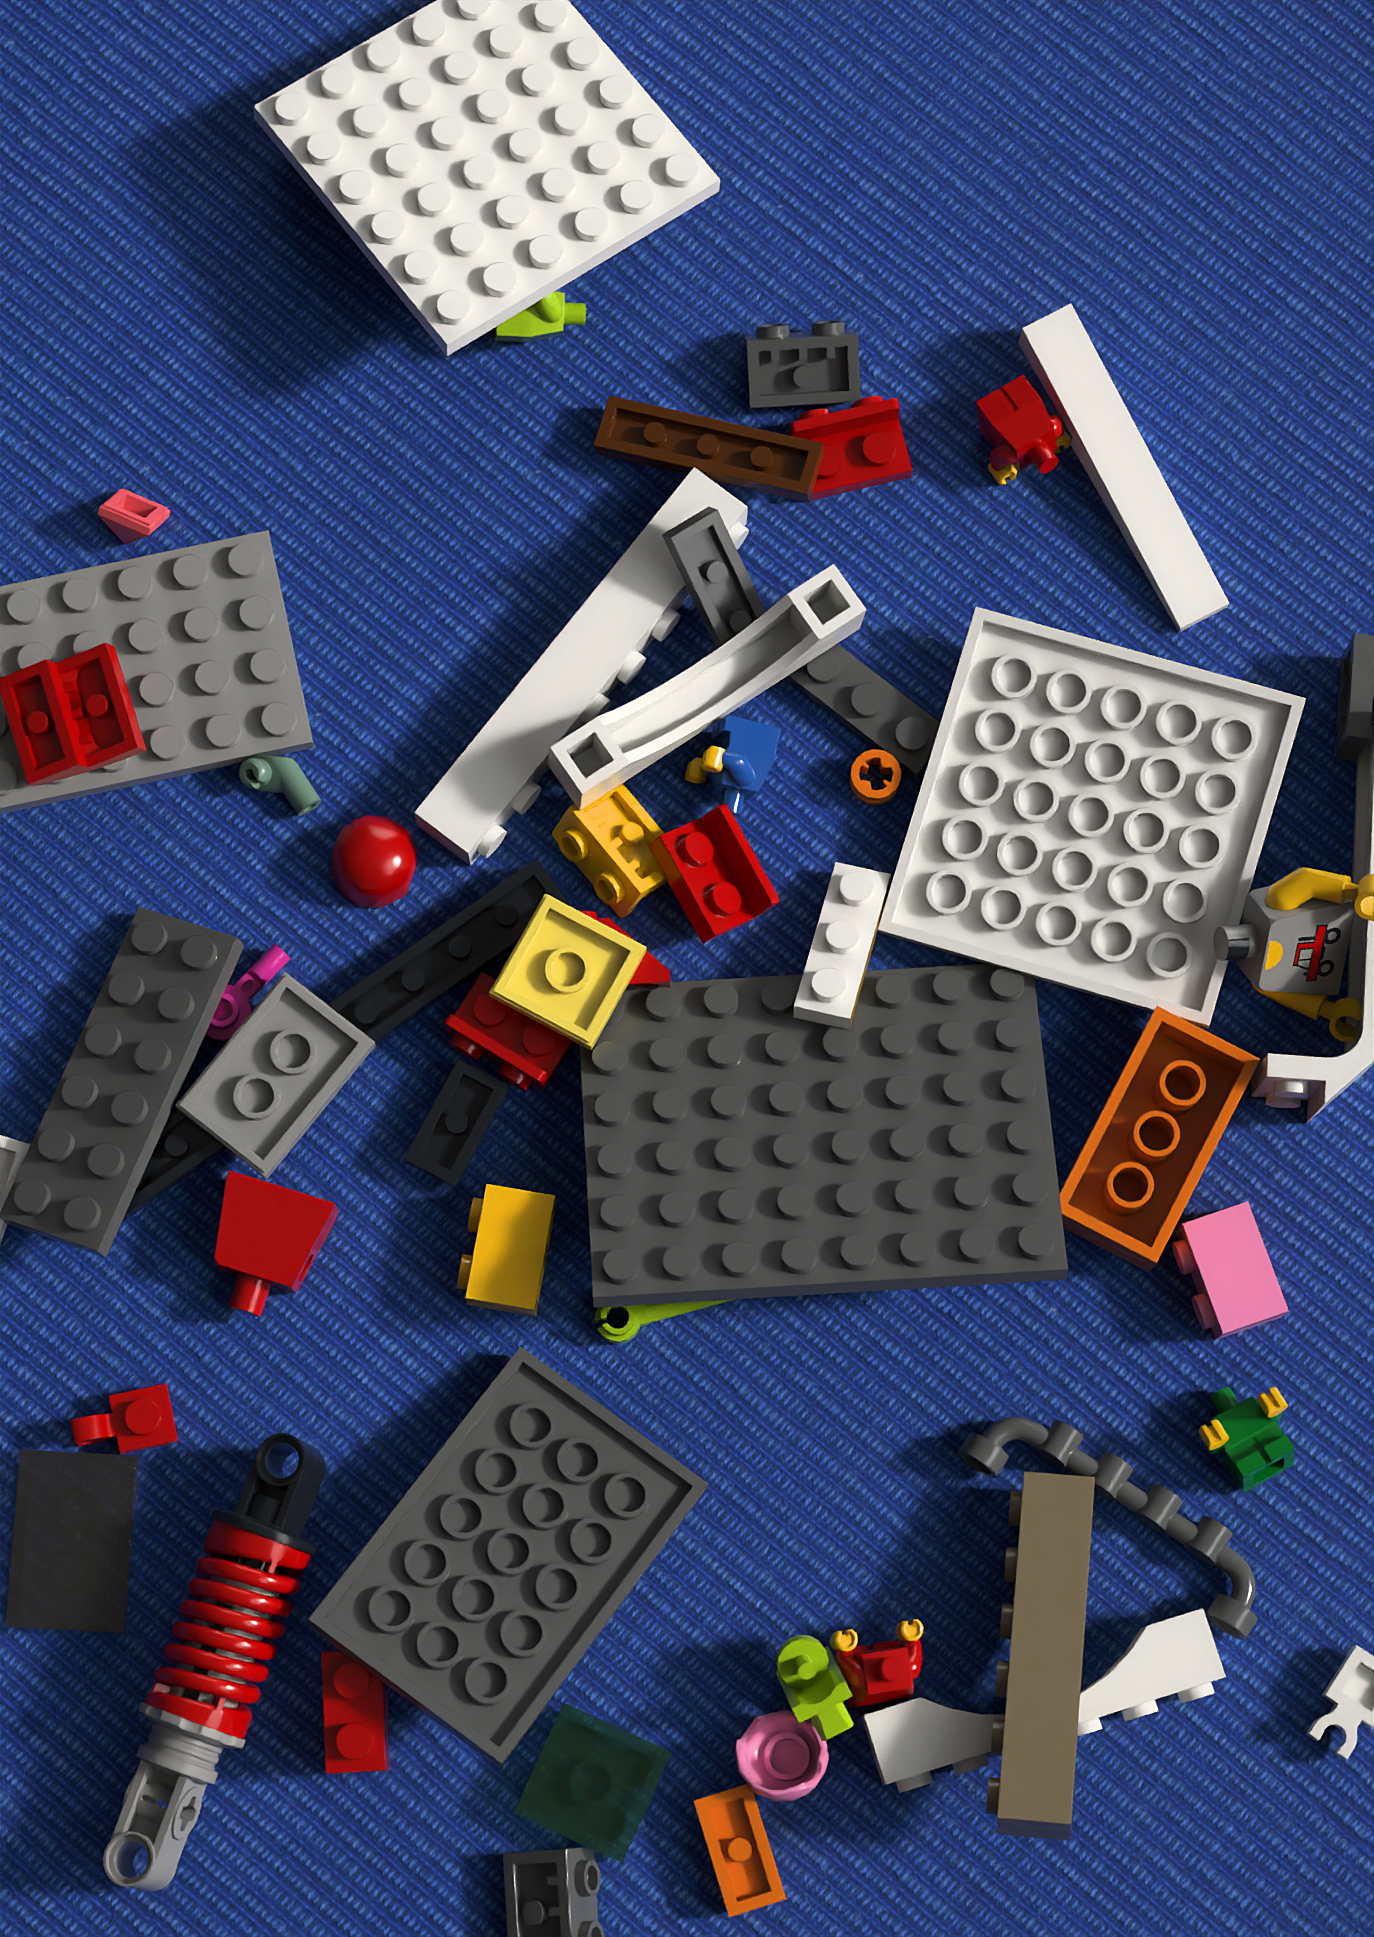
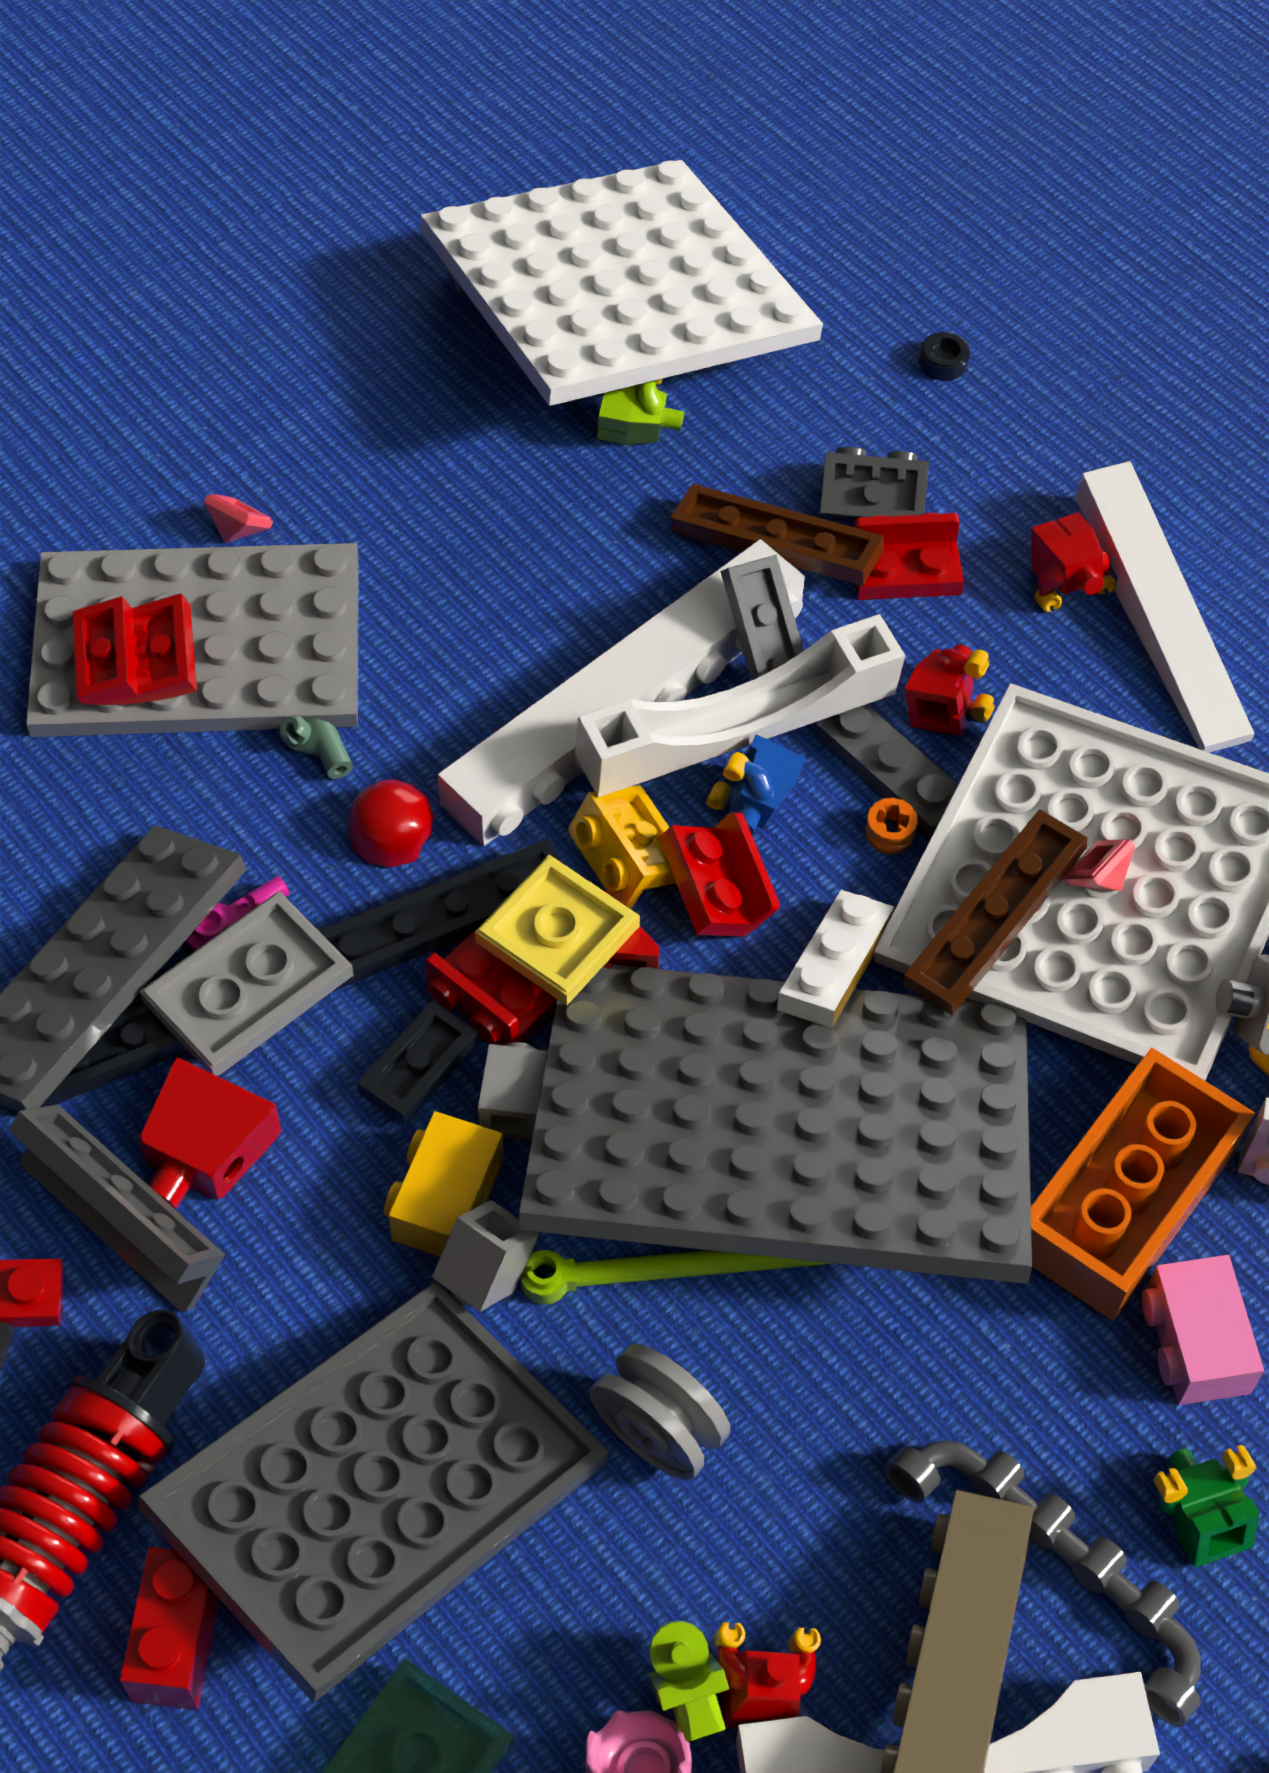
camera: 10 degrees right, 20 degrees down
(206, 1323) = (116, 1204): none -> dark grey panel
(555, 1138) = (512, 1089): none -> light grey brick
(560, 1321) = (484, 1256): none -> light grey brick
(749, 1445) = (660, 1411): none -> light grey wheel
(855, 167) = (944, 356): none -> black tile
(908, 612) = (942, 690): none -> red piece
(992, 878) = (995, 912): none -> reddish brown plate
(1088, 814) = (1102, 865): none -> coral slope

